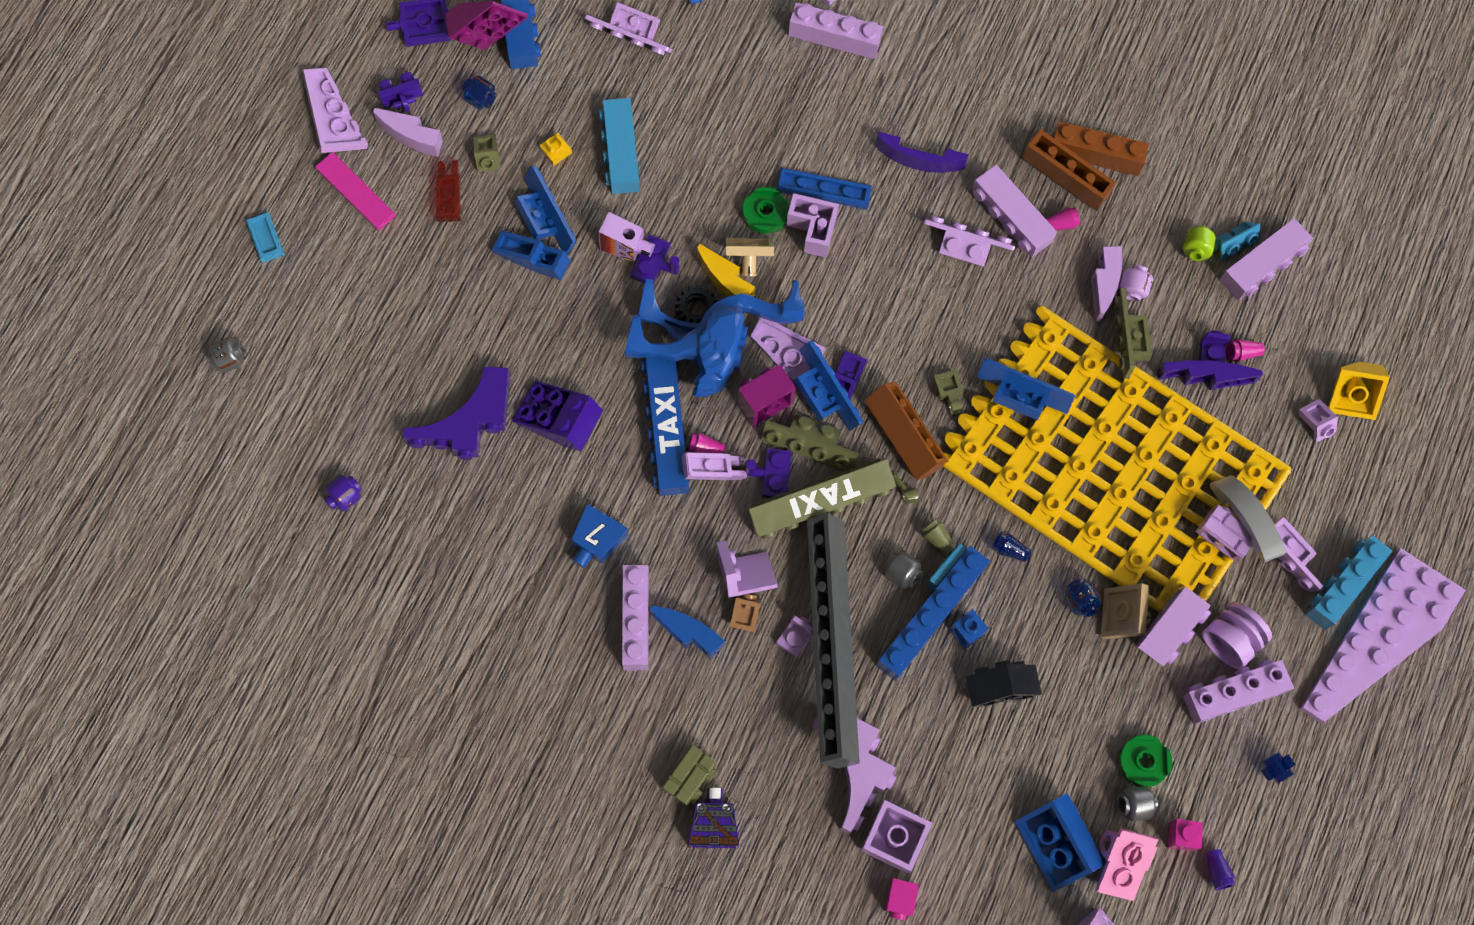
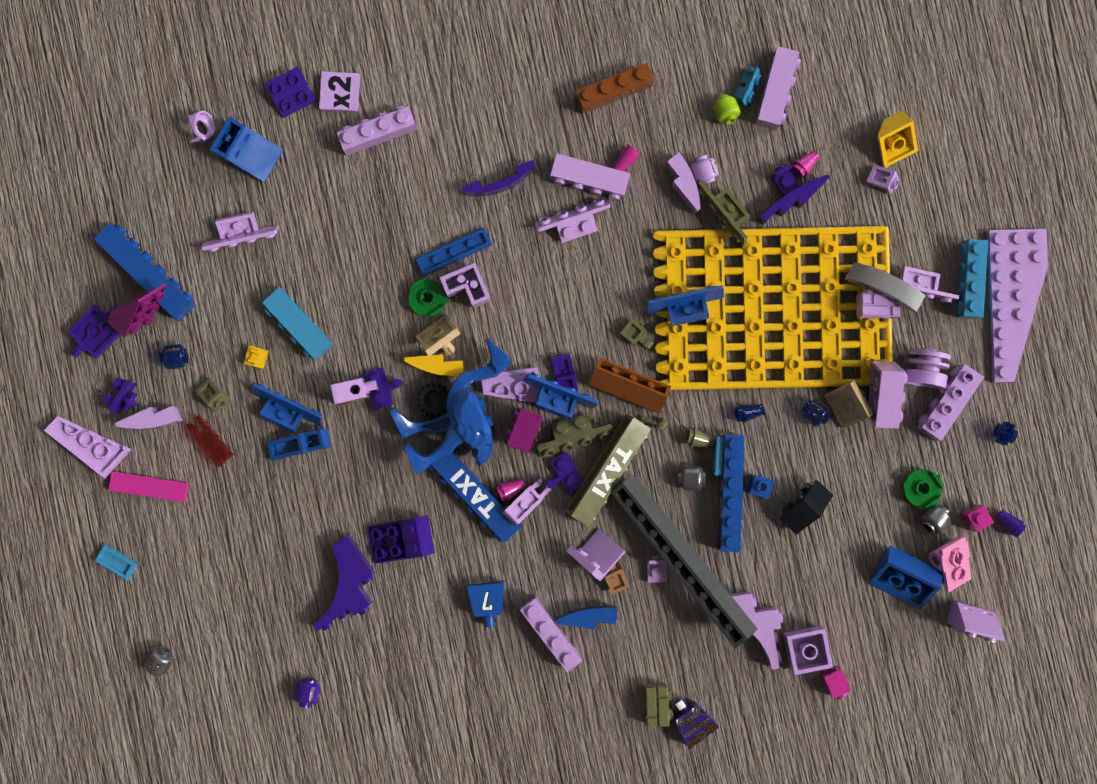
camera: 30 degrees left, 15 degrees up
(1069, 170) = (606, 120): dark orange brick -> none

